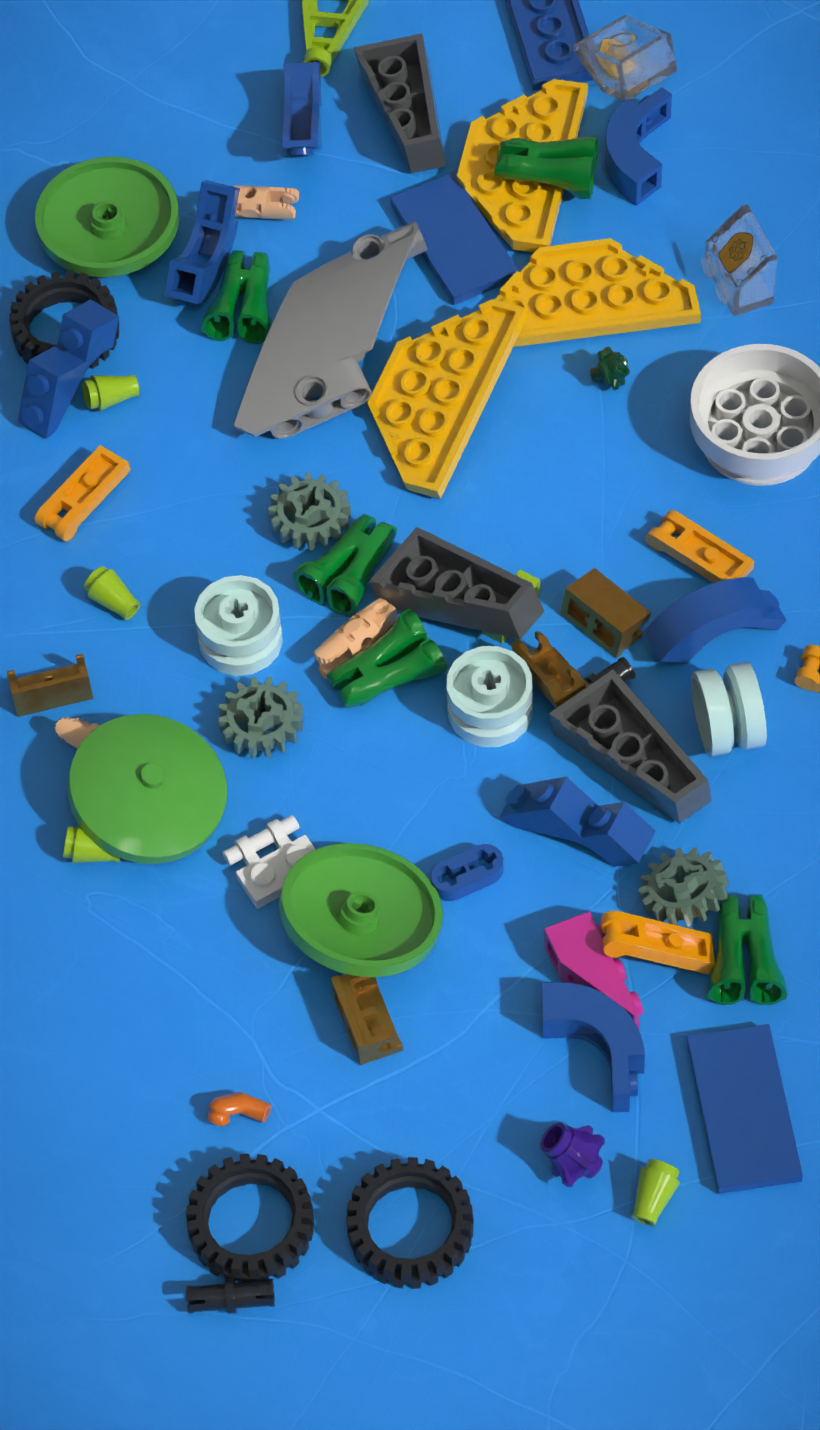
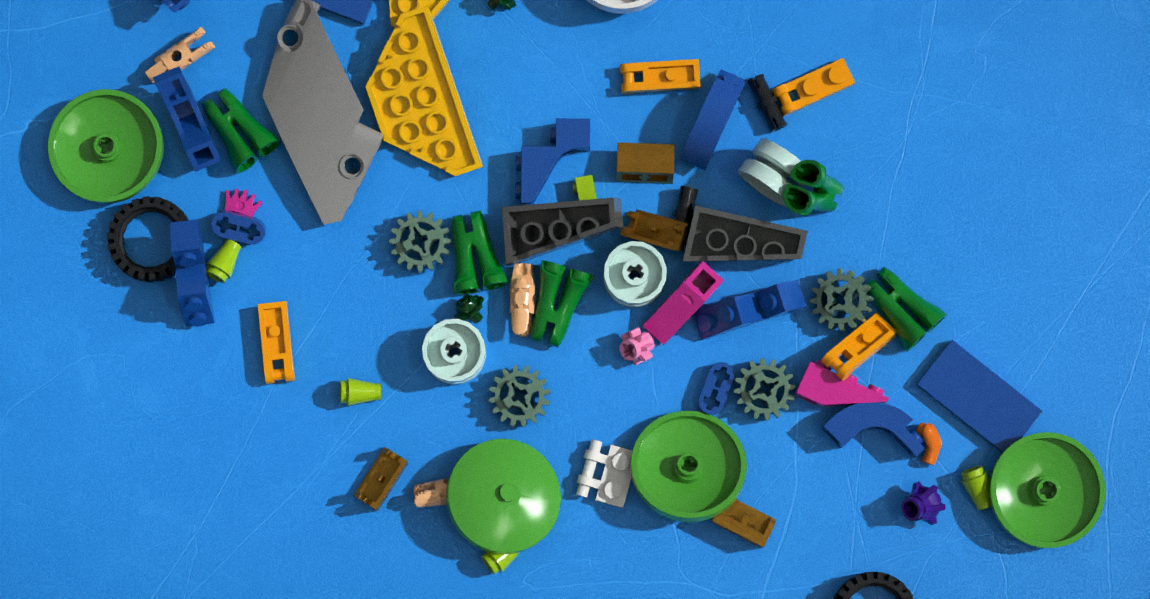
camera: 50 degrees left, 25 degrees up
(149, 377) = (239, 220): none -> blue beam
(179, 362) = (241, 205): none -> dark pink piece
(295, 603) = (469, 307): none -> dark green plant
(424, 763) = (636, 346): none -> bright pink gear
(499, 532) = (539, 161): none -> blue arch
(514, 892) = (759, 377): none -> sand green gear
(515, 759) = (683, 302): none -> dark pink slope
(648, 1108) = (932, 440): none -> orange arm
(727, 1252) = (1047, 490): none -> bright green dish
(761, 719) = (823, 193): none -> green piece
(788, 656) = (767, 103): none -> black pin

